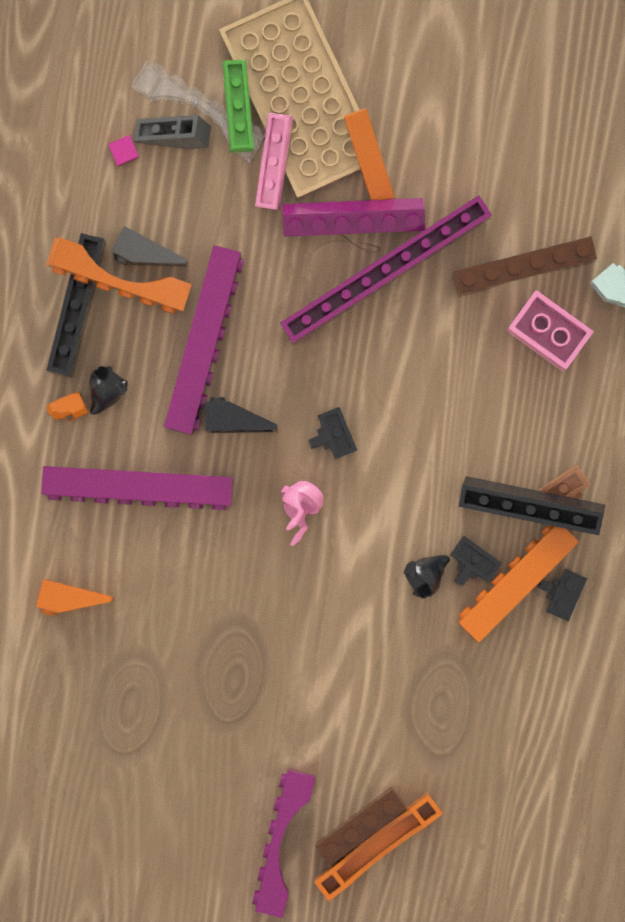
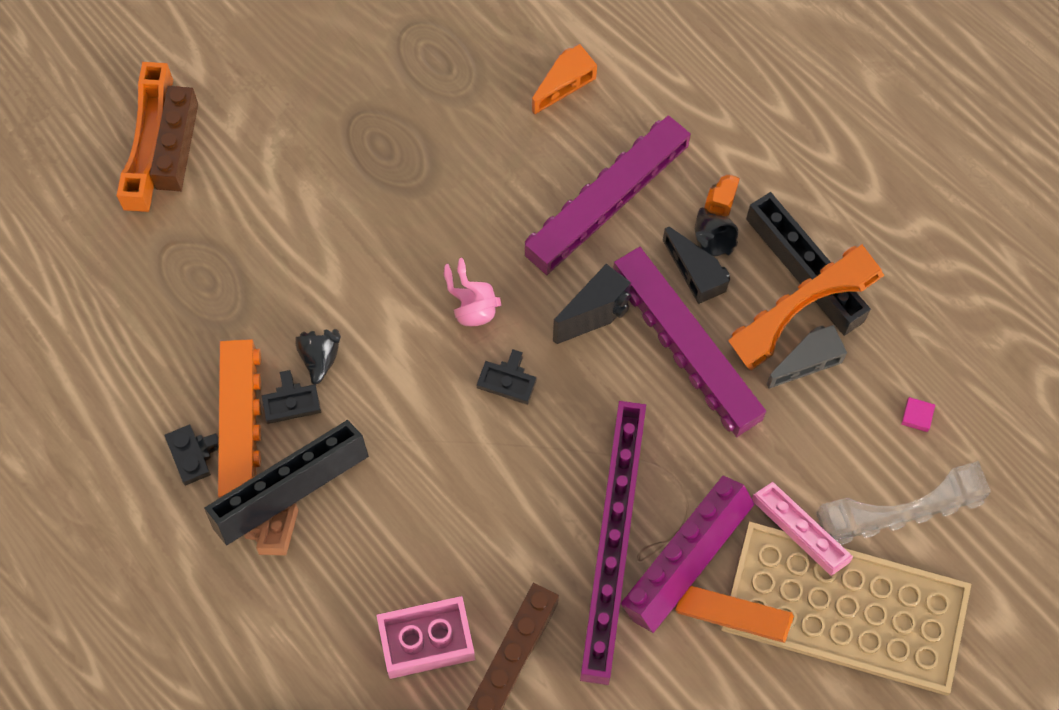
camera: 130 degrees right, 20 degrees down
(143, 372) = (698, 268): none -> black slope
(175, 132) = (900, 466): dark grey slope -> none
(238, 106) = (881, 535): bright green tile -> none
(273, 891) = (195, 43): magenta arch -> none

